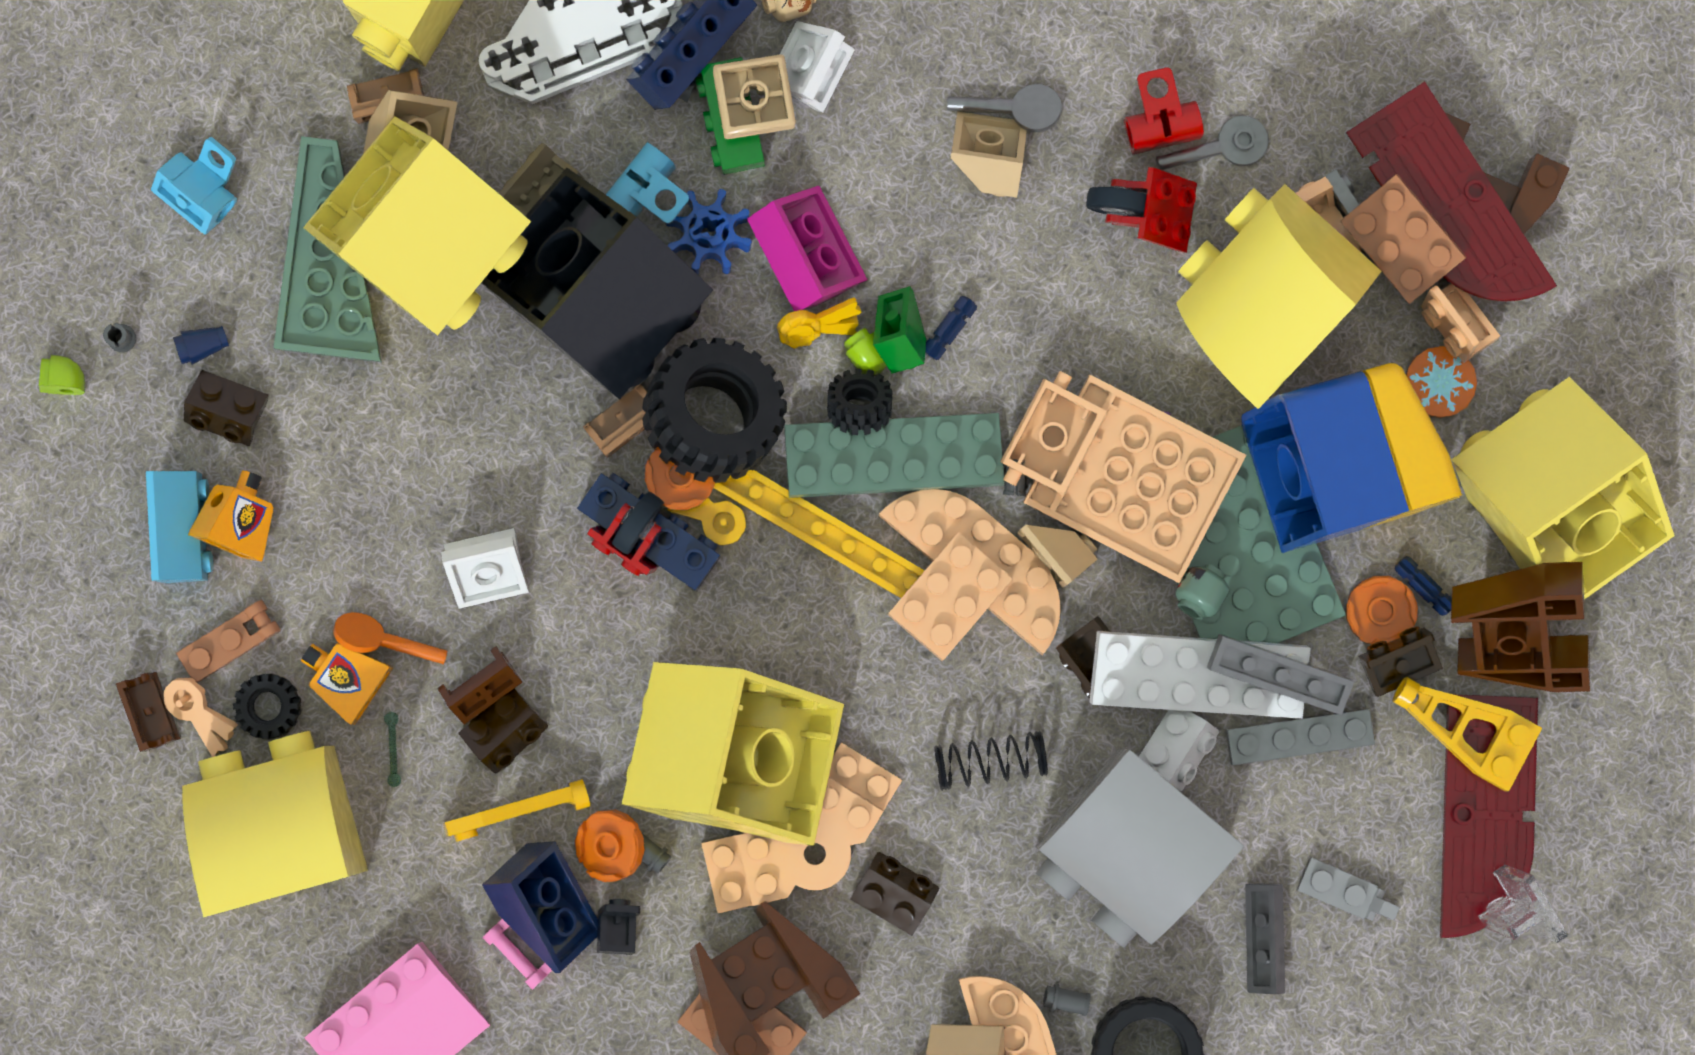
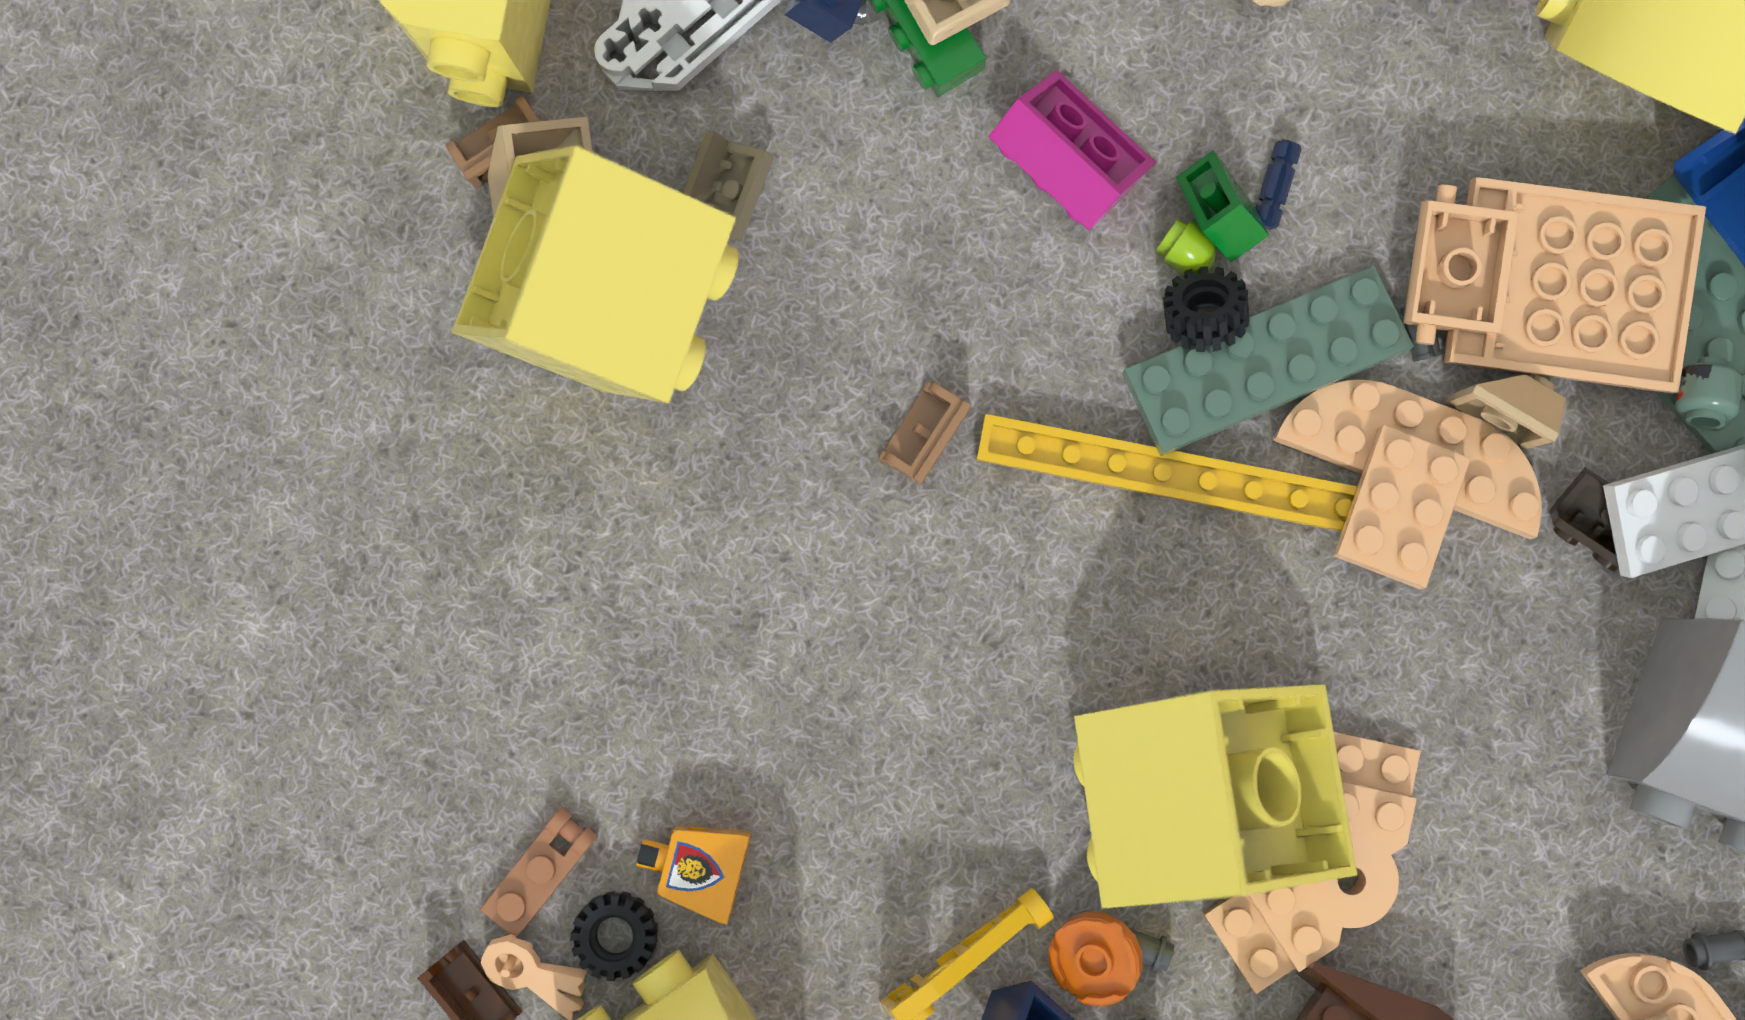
camera: 20 degrees left, 0 degrees up
(61, 376) = (219, 620): lime piece -> none
(127, 340) = (285, 547): dark grey pin -> none
(173, 506) = (426, 754): medium azure slope -> none
(197, 187) = (308, 331): medium azure piece -> none
(199, 343) = (376, 521): dark blue cone -> none
(224, 408) = (433, 588): dark brown bracket -> none
(235, 518) = (494, 720): light orange torso -> none
(321, 297) = (504, 411): sand green wing -> none
(365, 634) = (703, 805): orange piece -> none
(391, 720) = (771, 897): clear green hinge -> none
(482, 688) = (869, 821): reddish brown hinge -> none
(484, 568) = (821, 672): white bracket -> none
(503, 731) = (913, 862): dark brown bracket -> none
(599, 284) = (842, 272): black brick -> none
(637, 525) = (997, 555): plate -> none
(644, 180) = (847, 139): medium azure piece -> none
(673, 488) = (1018, 489): orange tile -> none
(673, 547) = (1007, 557): dark blue brick -> none
(714, 219) = (947, 186): blue gear -> none
(721, 521) = (1087, 514): yellow piece -> none
(737, 375) = (1057, 332): black tyre -> none
(803, 326) = (1104, 241): yellow piece -> none
(895, 893) = (1463, 892): dark brown bracket -> none
(1039, 745) = (1578, 647): black piece -> none

